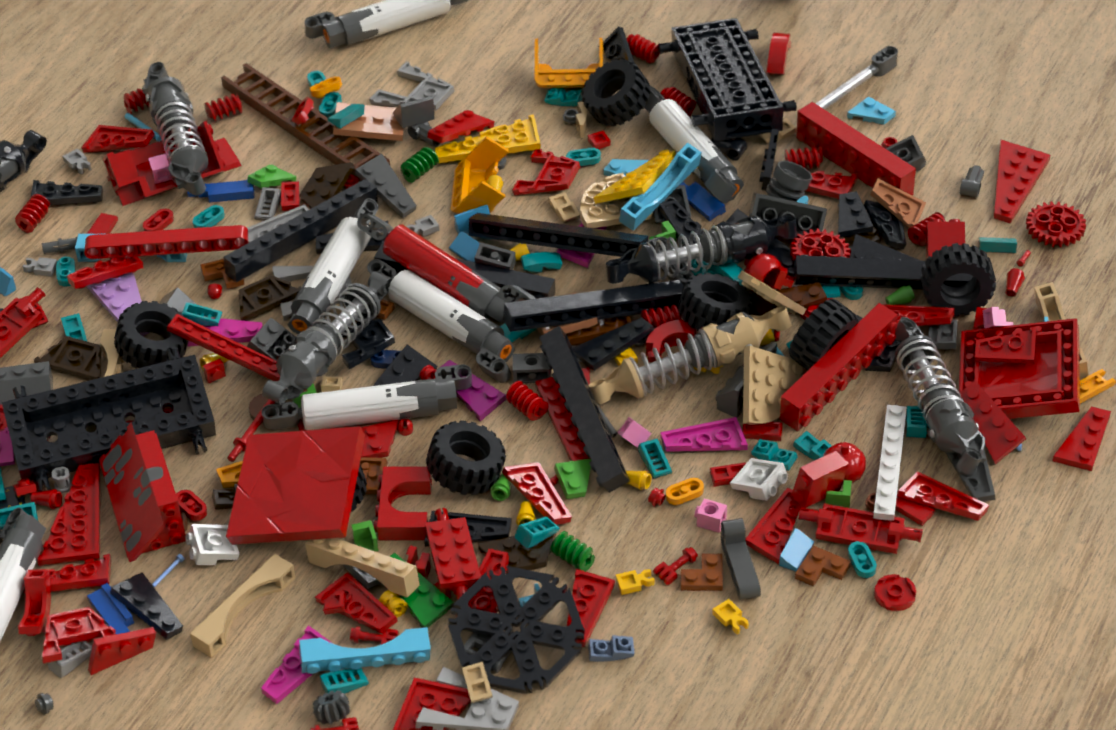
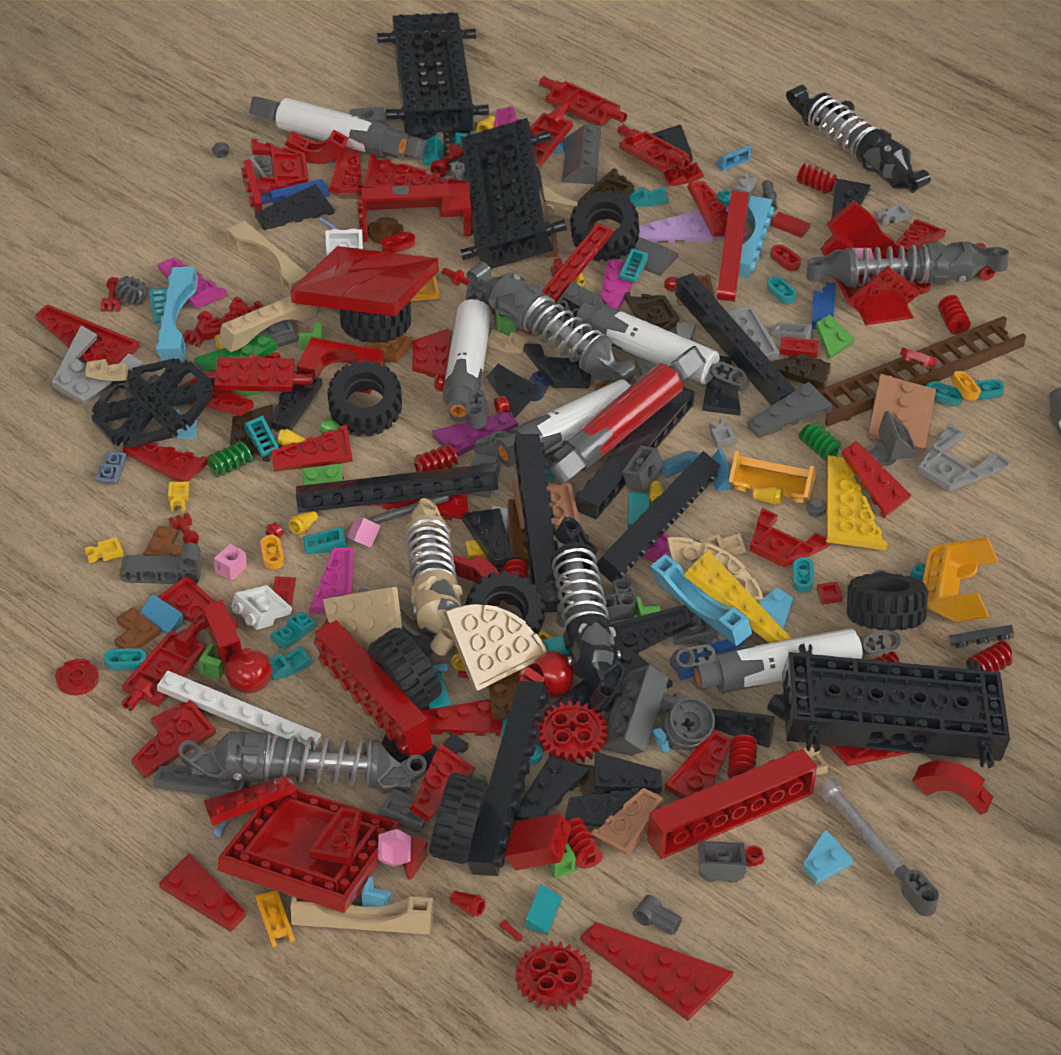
camera: 100 degrees right, 0 degrees up
(347, 115) = (898, 384): teal slope -> none

